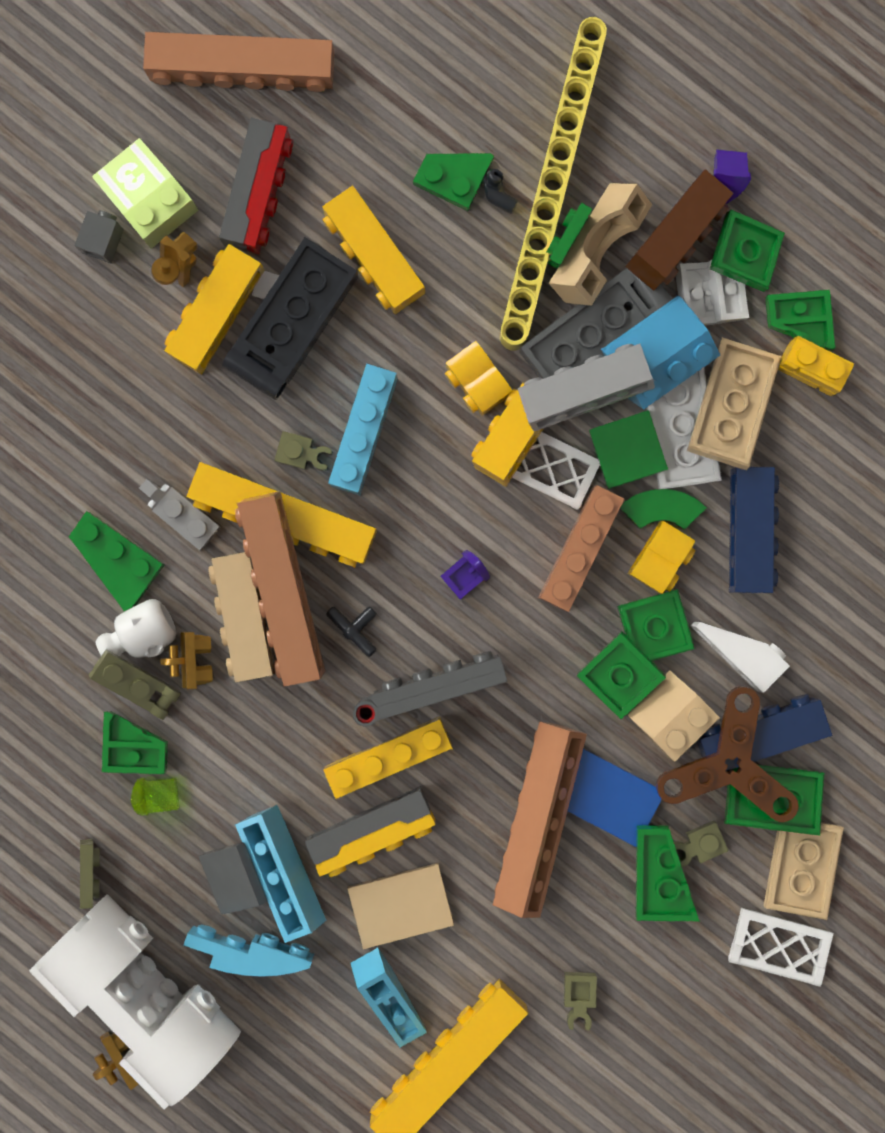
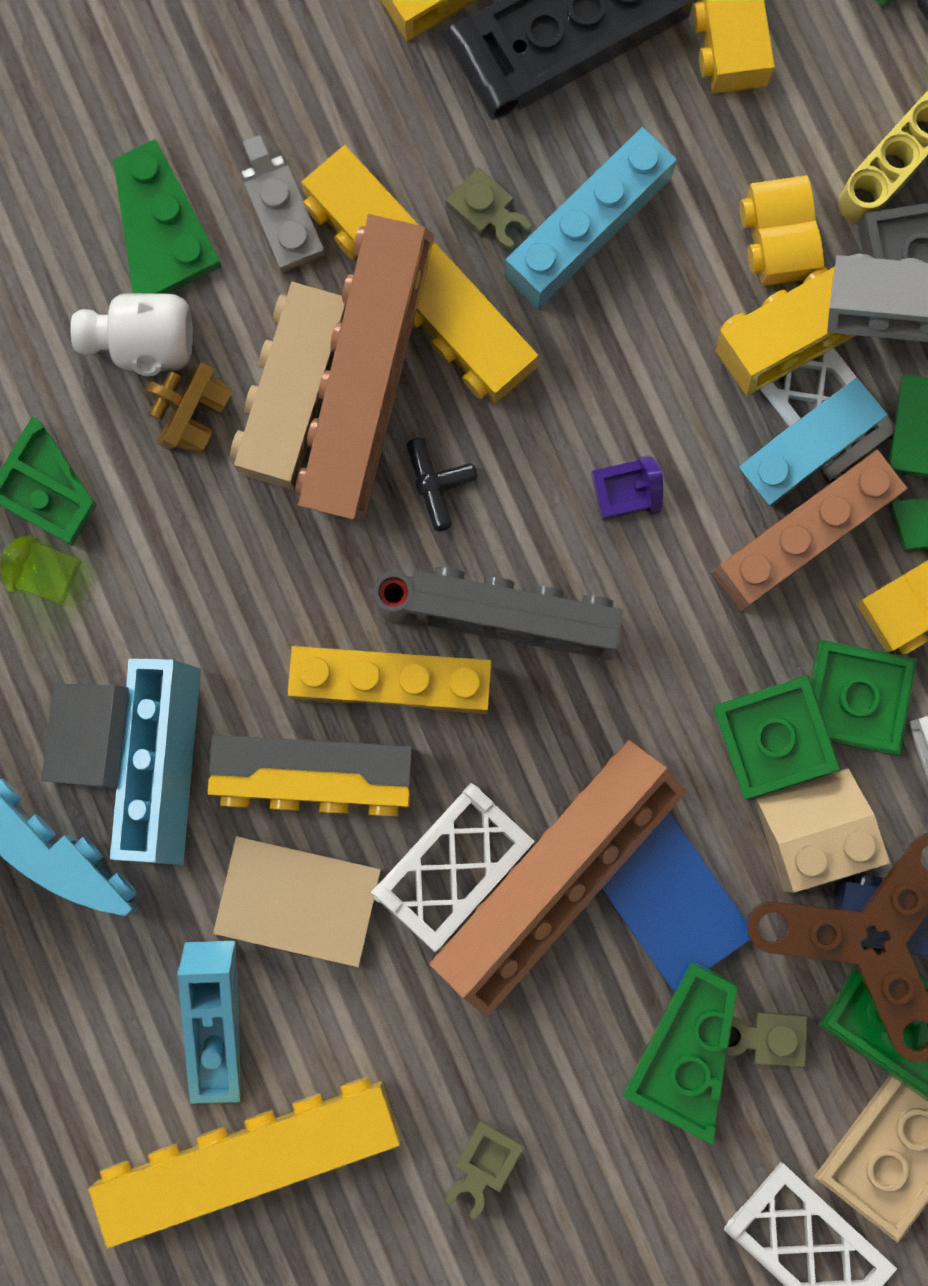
camera: 30 degrees right, 5 degrees down
(133, 683) = (93, 397): olive plate -> none
(495, 861) = (493, 871): none -> white window
(557, 497) = (812, 442): none -> medium azure slope

